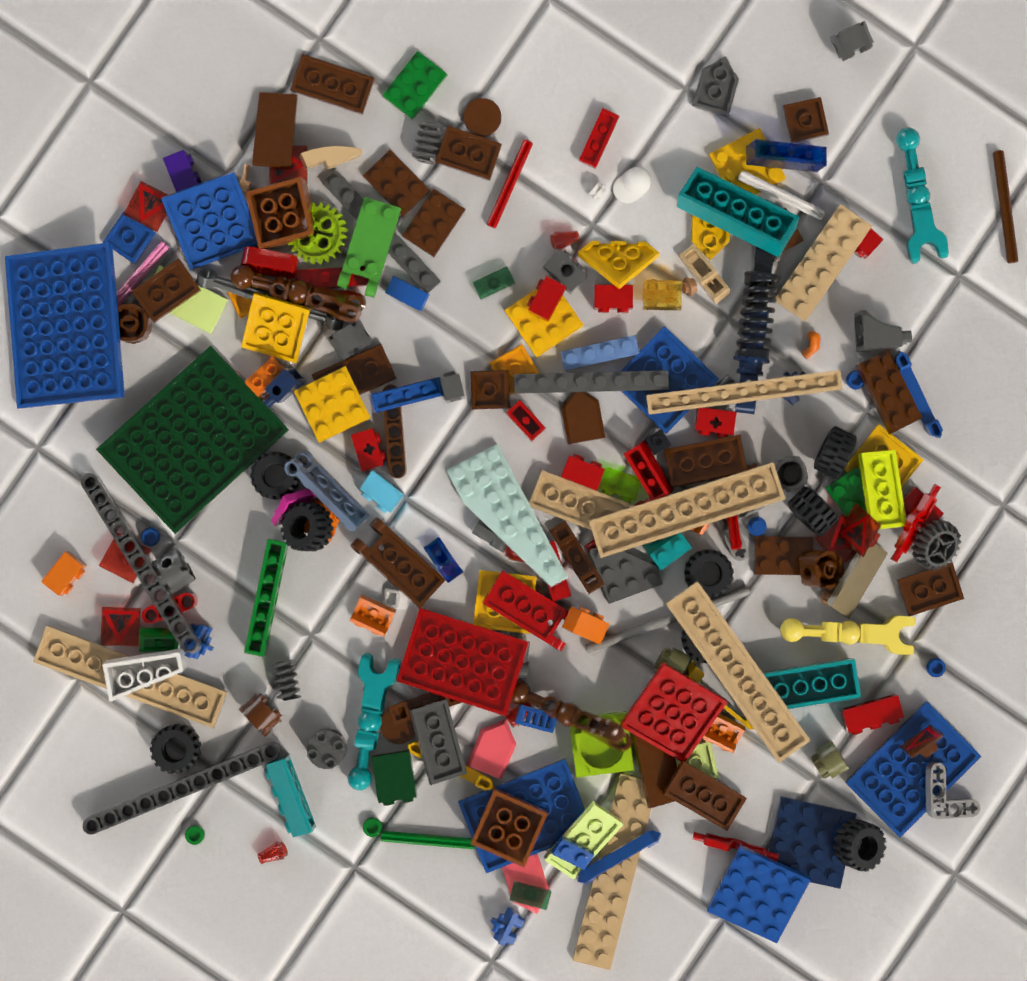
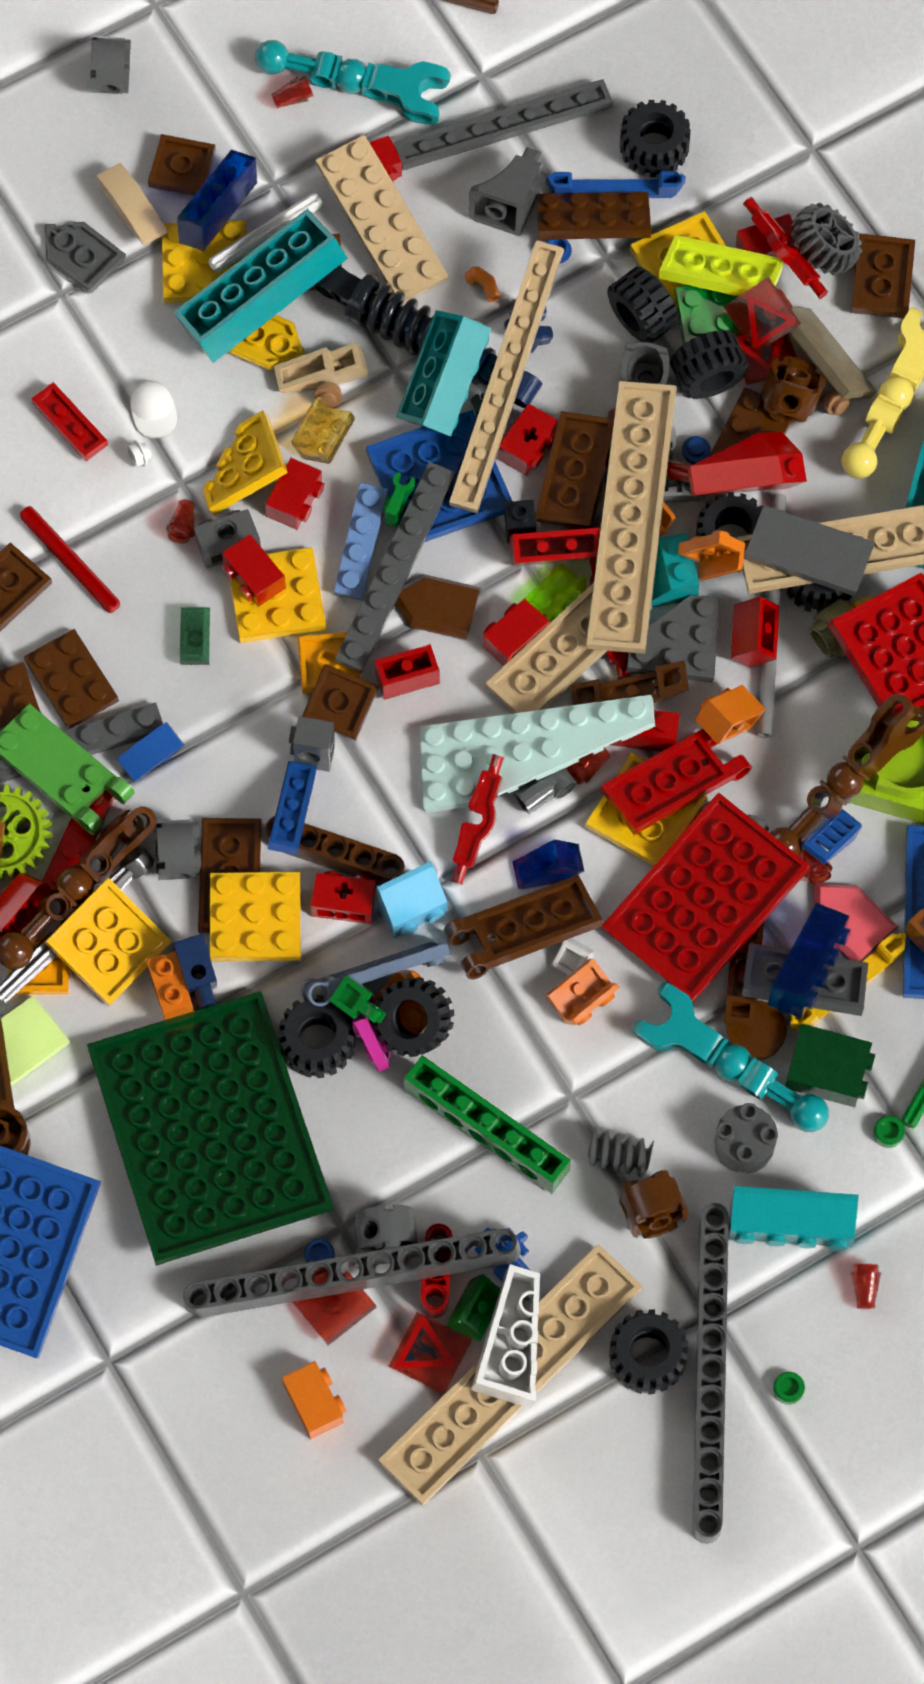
camera: 60 degrees left, 20 degrees down
(296, 490) = (354, 998): none -> green plate
(445, 741) = (809, 960): none -> clear blue brick
(460, 505) = (482, 803): none -> red piece
(630, 363) = (395, 505): none -> green plate
(648, 616) = (755, 632): none -> red brick
(679, 574) = (716, 554): none -> orange bracket
(707, 630) = (809, 550): none -> dark grey tile
(727, 353) = (444, 372): none -> teal slope
(757, 569) = (751, 465): none -> red wedge
(762, 103) = (131, 204): none -> tan slope
(890, 164) = (292, 93): none -> clear red cone
(928, 306) = (503, 124): none -> dark grey plate
(976, 401) = (654, 119): none -> black tyre

